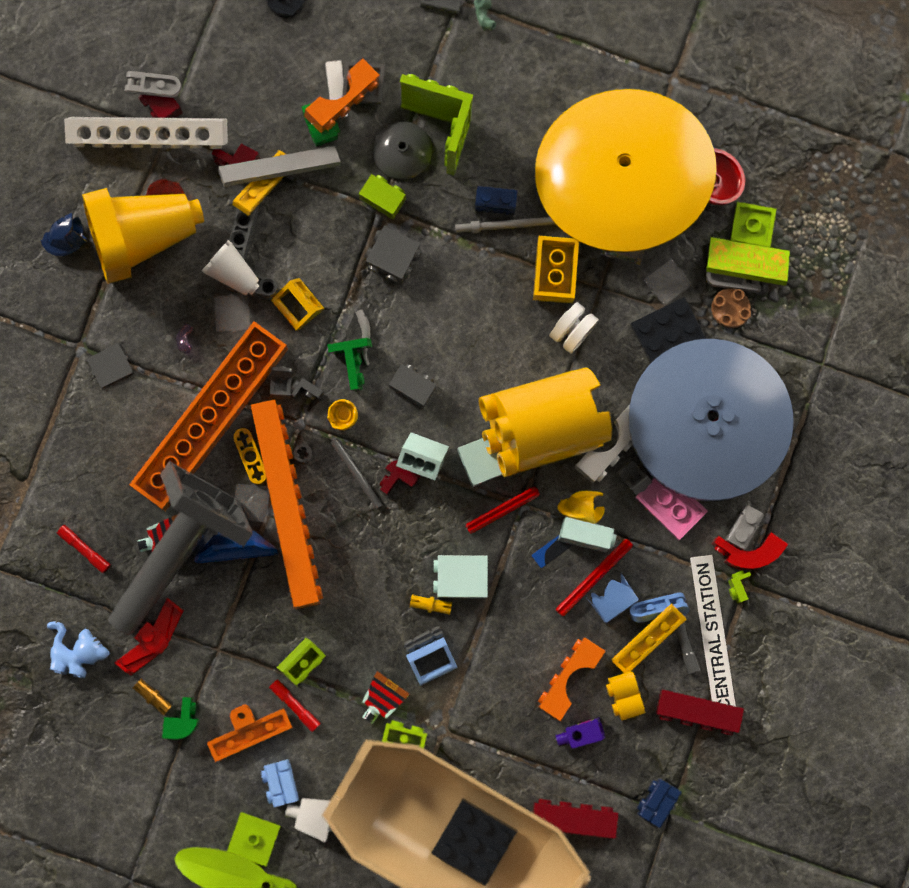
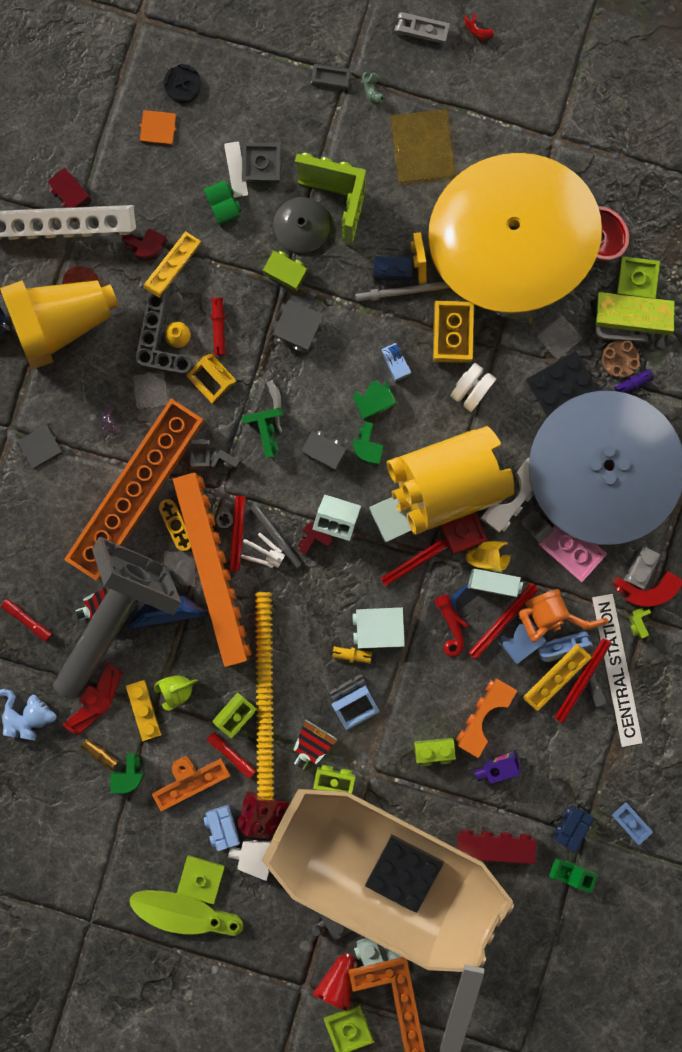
camera: 10 degrees right, 5 degrees up
(152, 84) = (61, 176): light grey plate -> none
(203, 652) = (143, 710): none -> yellow plate
(232, 270) = (147, 351): white cone -> none
(239, 631) = (175, 690): none -> lime helmet
(257, 41) = (157, 127): none -> orange piece
(264, 256) = (177, 334): none -> yellow brick
(279, 166) = (186, 247): light grey tile -> none
(308, 241) = (218, 326): none -> red pin
(315, 469) = (237, 533): none -> red axle
(322, 772) = (260, 816): none -> dark red bracket
(324, 112) = (225, 193): orange arch -> none
(334, 645) = (264, 696): none -> yellow piece
(342, 414) = (259, 481): yellow hair -> none
(353, 495) = (274, 557): none -> white plant
(456, 388) = (365, 450): none -> green brick
(470, 337) = (375, 400): none -> green piece
(494, 298) = (396, 362): none -> light blue leg
(514, 711) = (434, 750): none -> lime brick
(524, 191) = (419, 259): none -> yellow wing
(533, 76) = (422, 145): none -> clear yellow piece
(541, 574) = (453, 621): none -> red plant
(556, 480) = (463, 533): none -> red plate
(625, 695) = (538, 731): yellow brick -> none
(643, 571) = (549, 613): none -> orange piece
(656, 853) = (573, 875): none -> green brick
(676, 644) = (583, 680): none -> red axle
(699, 711) = (607, 741): dark red brick -> none
(722, 801) = (632, 823): none -> medium blue plate
(745, 333) = (634, 382): none -> dark purple pin

